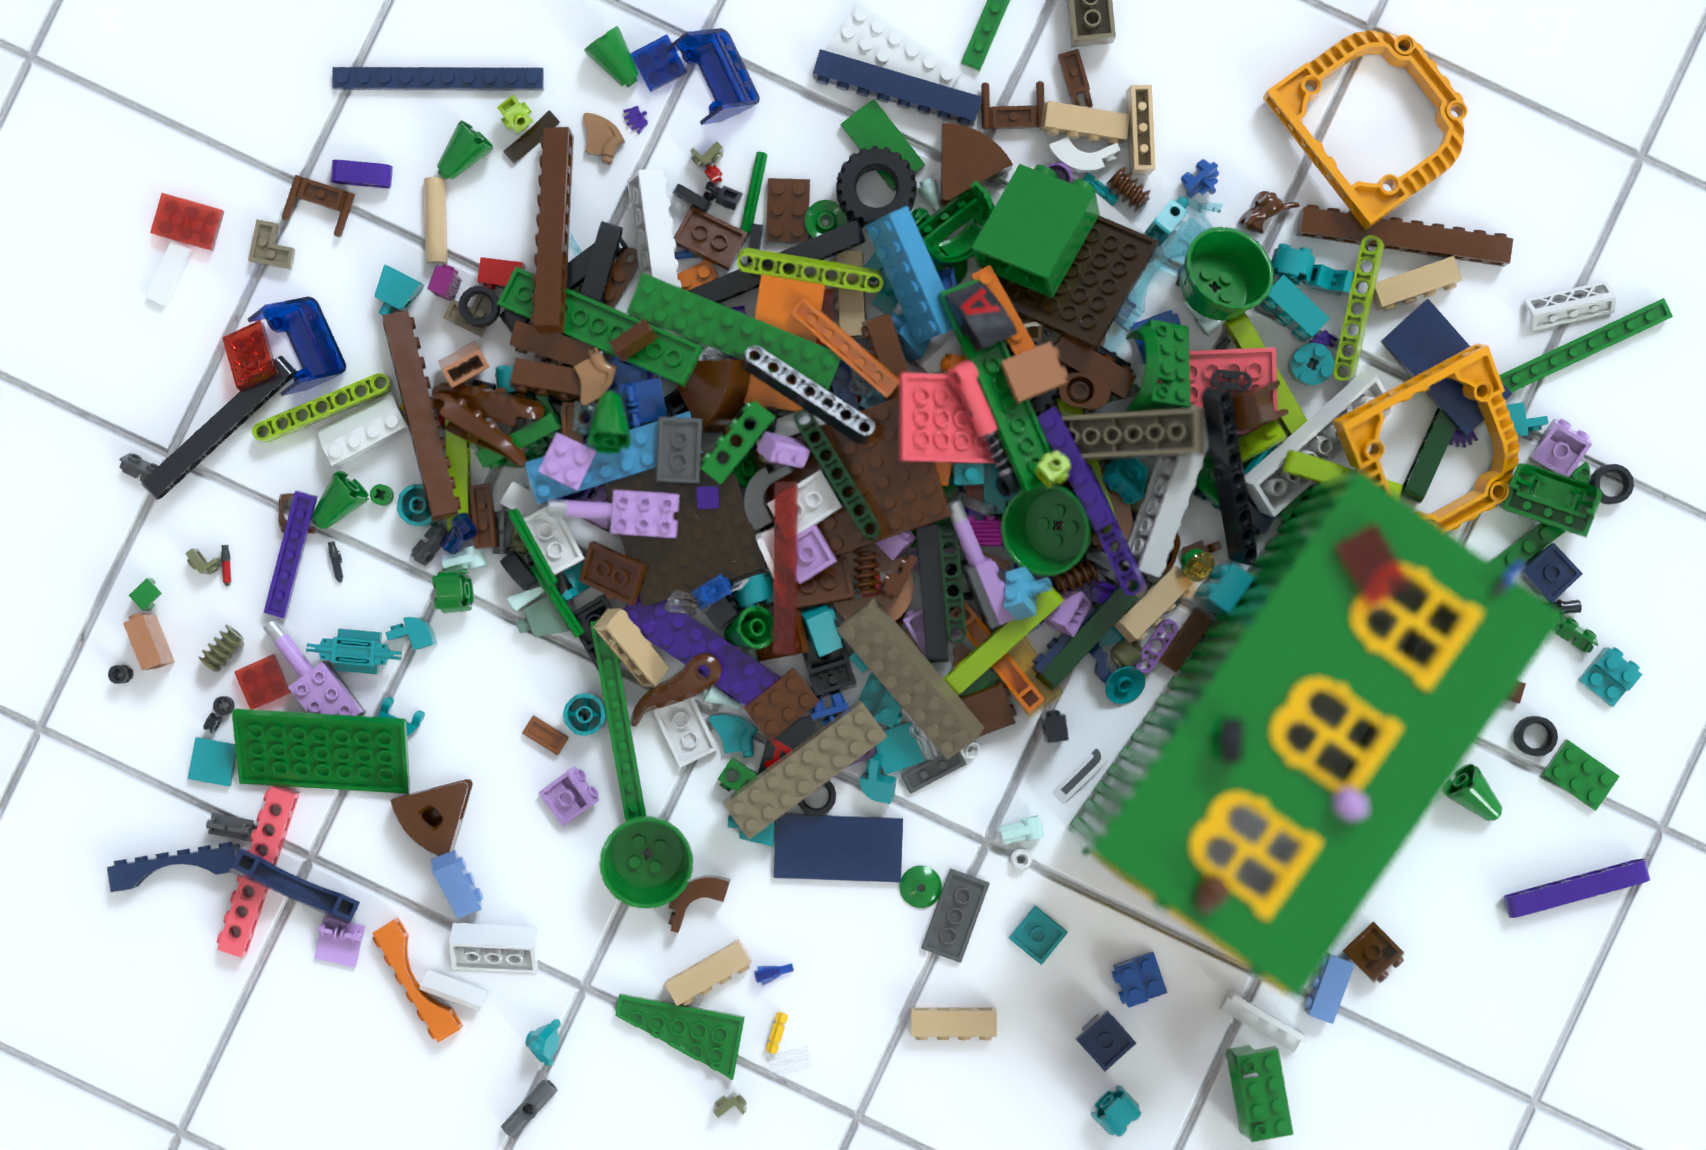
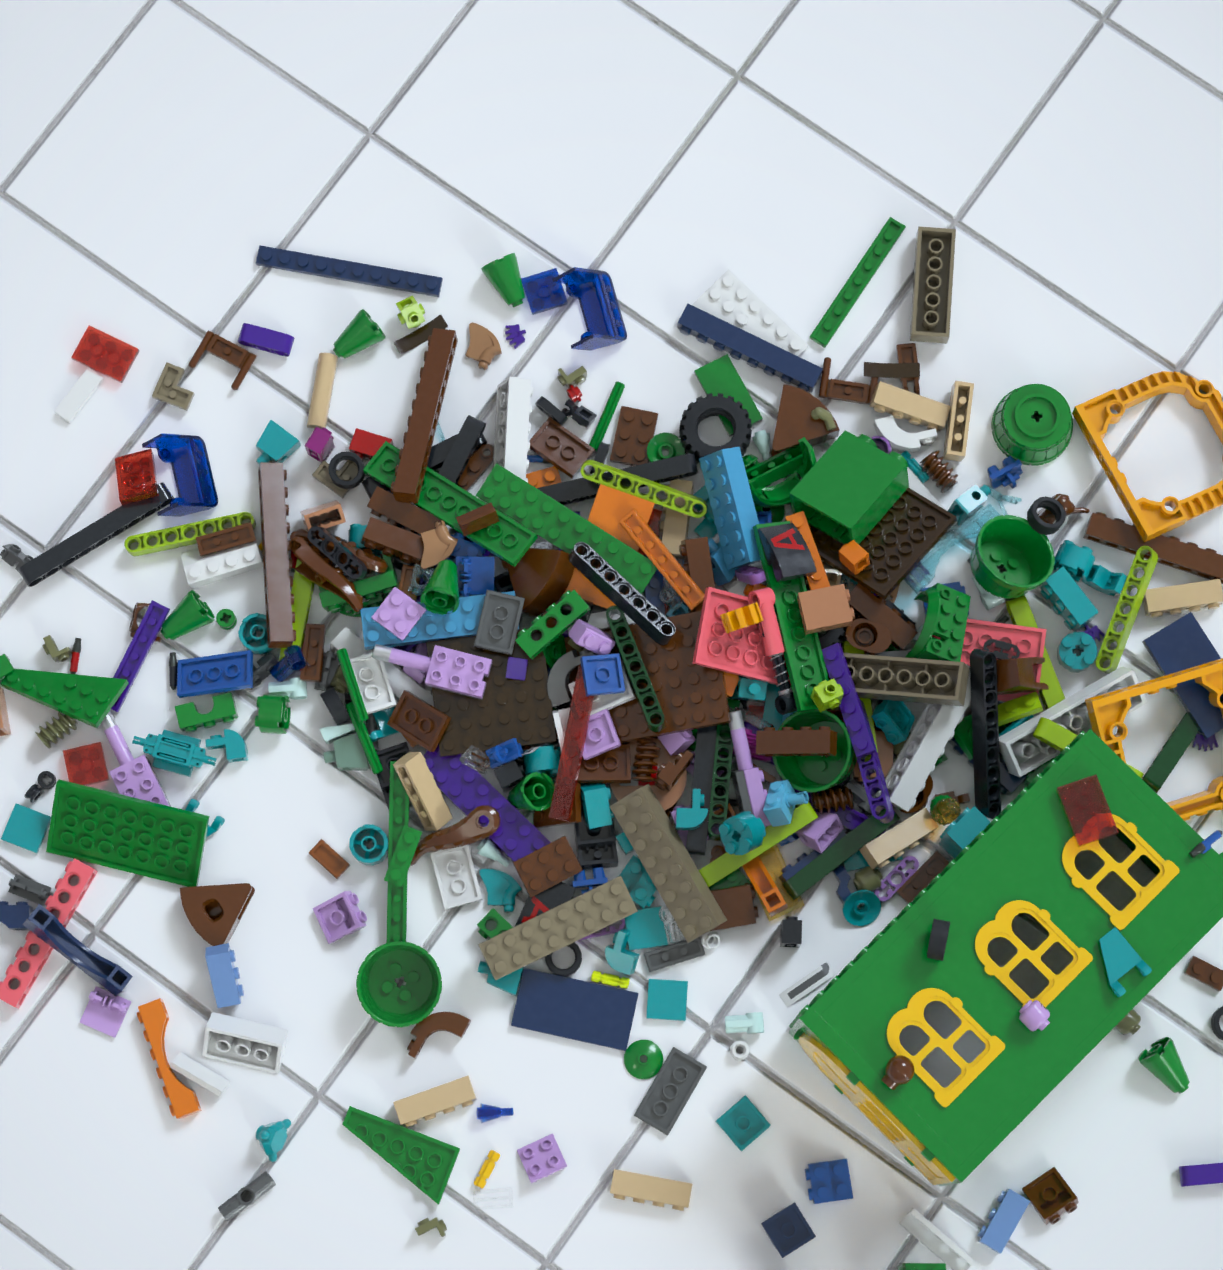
camera: 15 degrees right, 10 degrees down
(232, 610) = (71, 694): none -> green wing
(362, 408) = (226, 539): none -> reddish brown plate
(381, 558) = (215, 674): none -> blue plate
(398, 595) = (223, 710): none -> green arch
(486, 404) = (338, 550): none -> black beam
(623, 721) = (403, 856): none -> green plate
(803, 489) = (602, 674): none -> blue plate
(832, 1011) = (542, 1158): none -> lavender hinge
(870, 809) = (610, 979): none -> neon yellow axle
(931, 625) = (692, 817): none -> teal brick
(934, 819) = (667, 999): none -> teal tile
(944, 347) = (750, 575): none -> medium lavender beam
(945, 401) = (741, 617): none -> light orange gear
(985, 635) = (742, 833): none -> teal brick
(994, 151) = (825, 415): none -> olive arm
(1028, 525) = (796, 742): none -> reddish brown brick
(1054, 307) = (854, 557): none -> orange brick
(1057, 84) = (892, 370): none -> dark brown sticker
(1213, 134) = (1024, 437): none -> green piece
(1264, 210) = (1053, 506): none -> black tyre
(1433, 723) = (1119, 959): none -> teal flag

